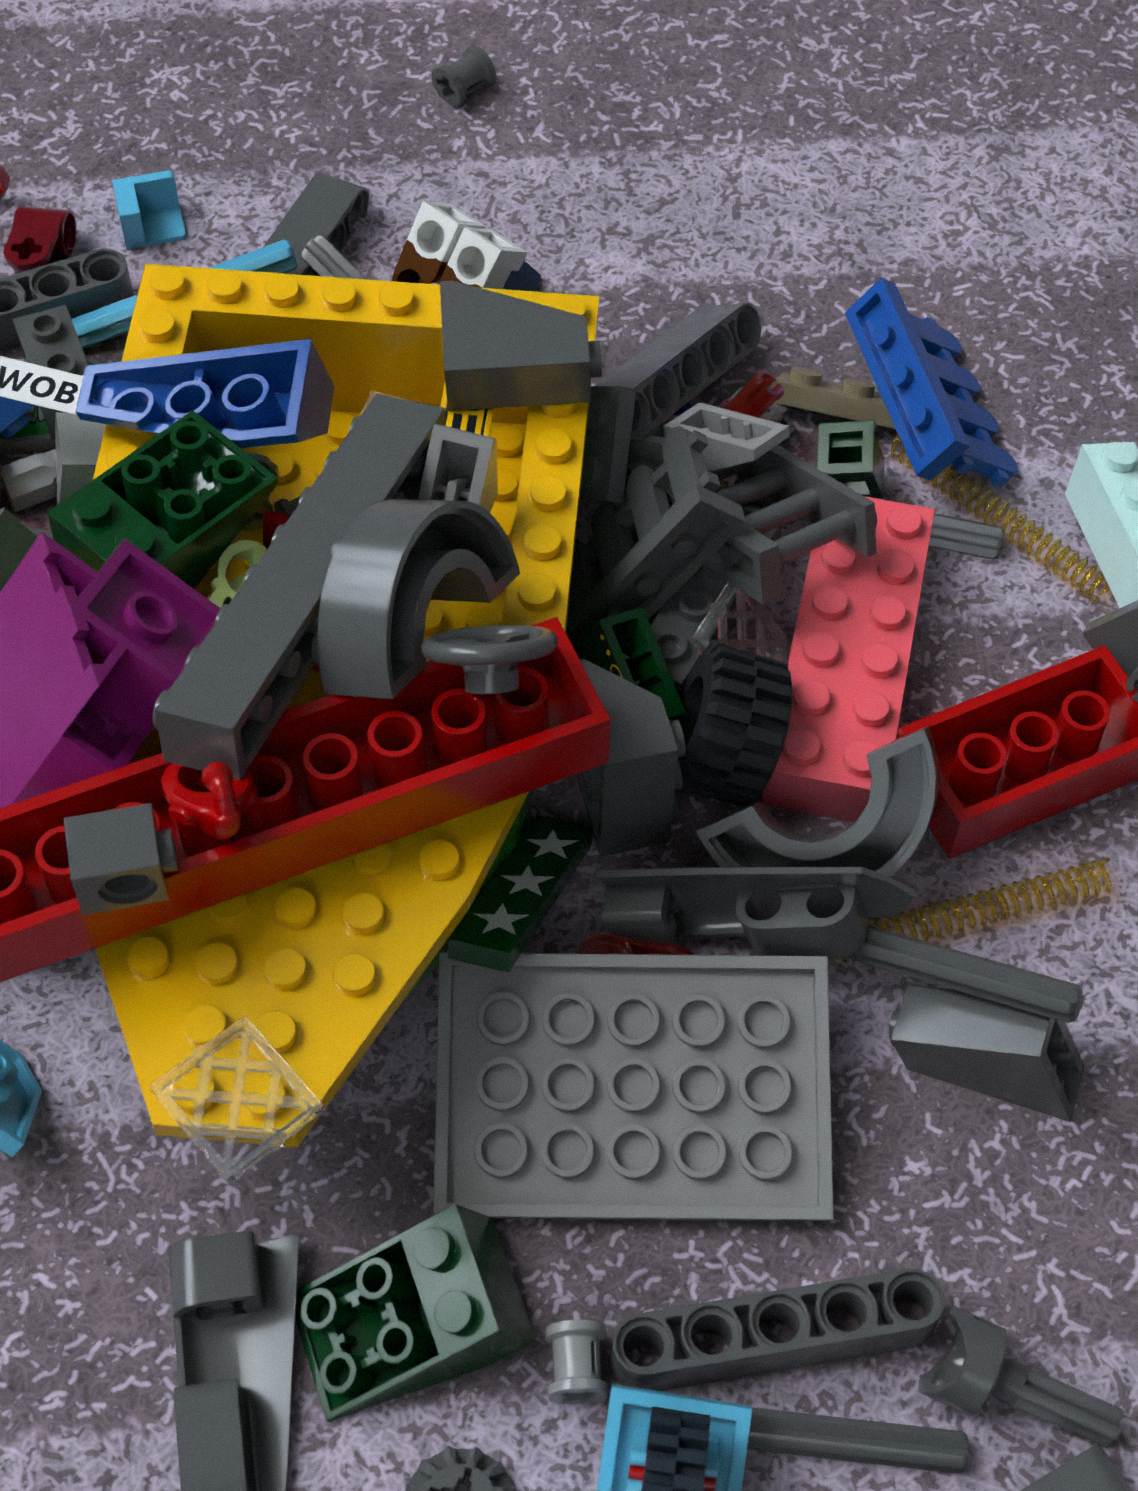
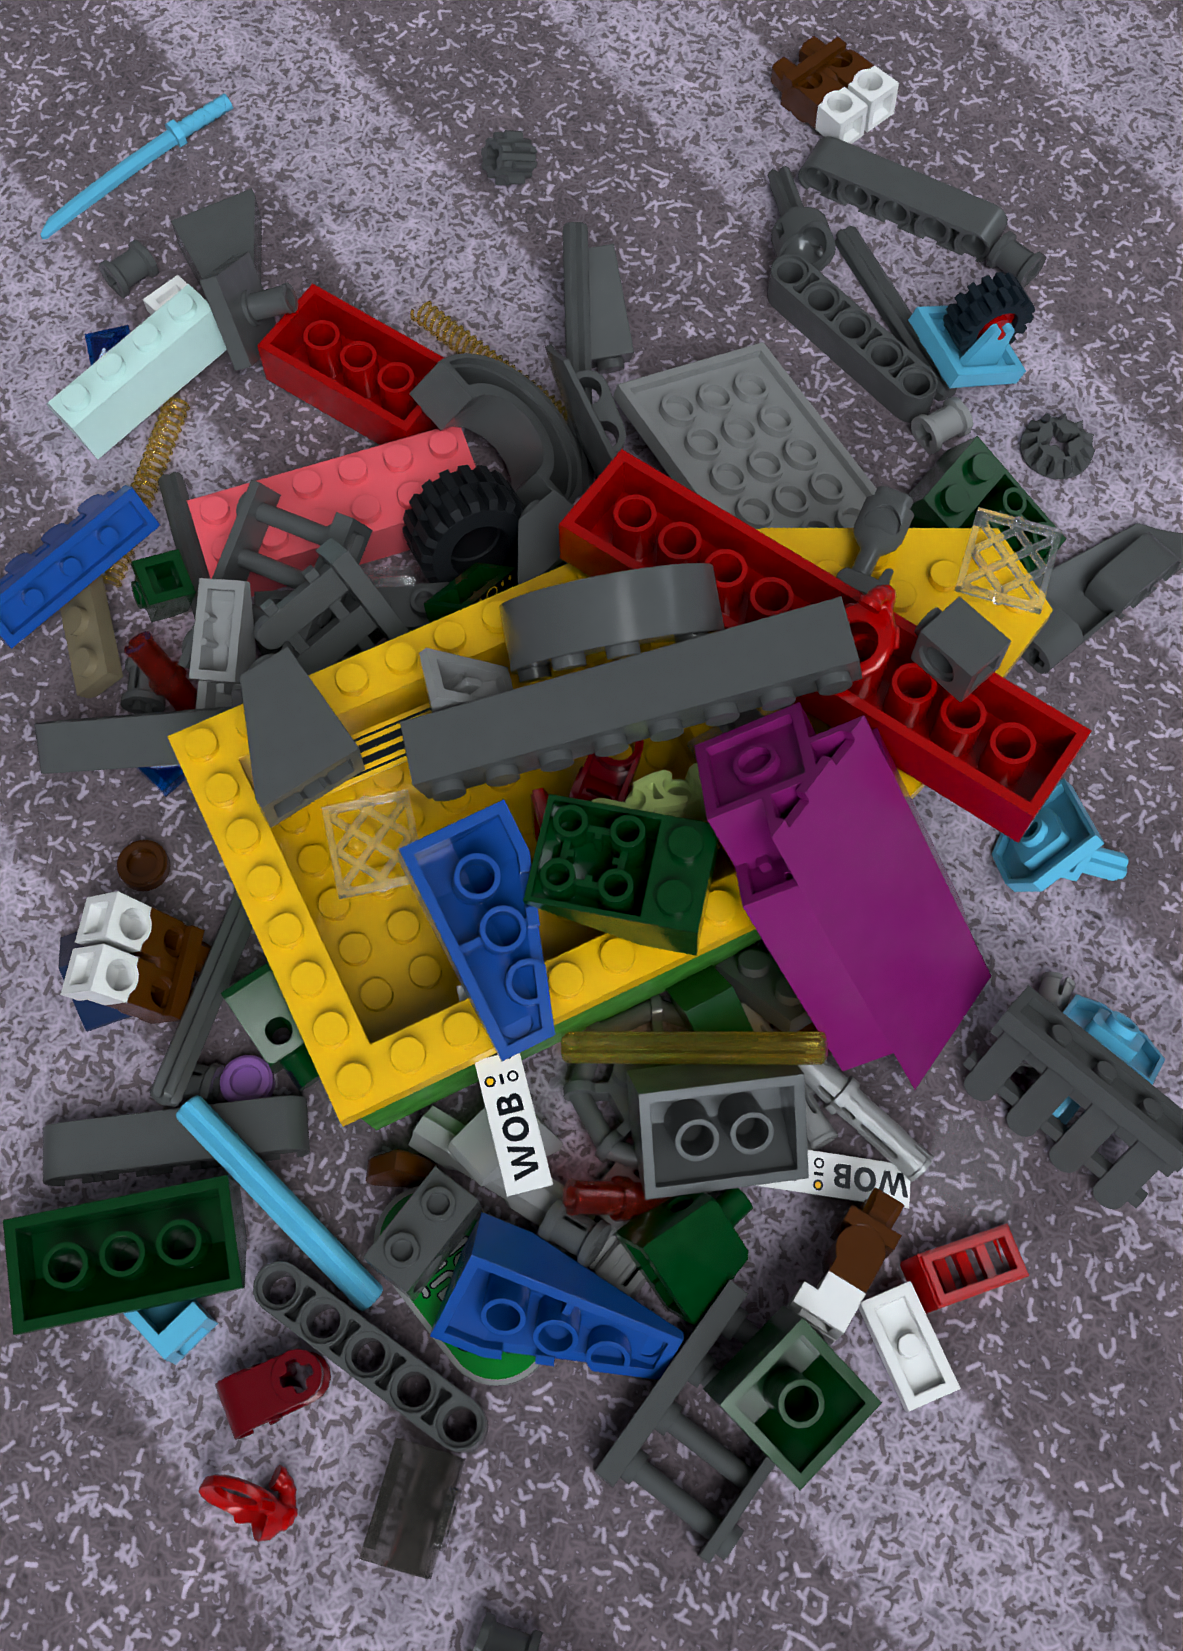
camera: 120 degrees left, 10 degrees up
(215, 186) = (125, 1254): none -> dark green slope
(364, 977) = (878, 532): none -> dark grey piece
(490, 653) = (646, 516): dark grey piece -> none

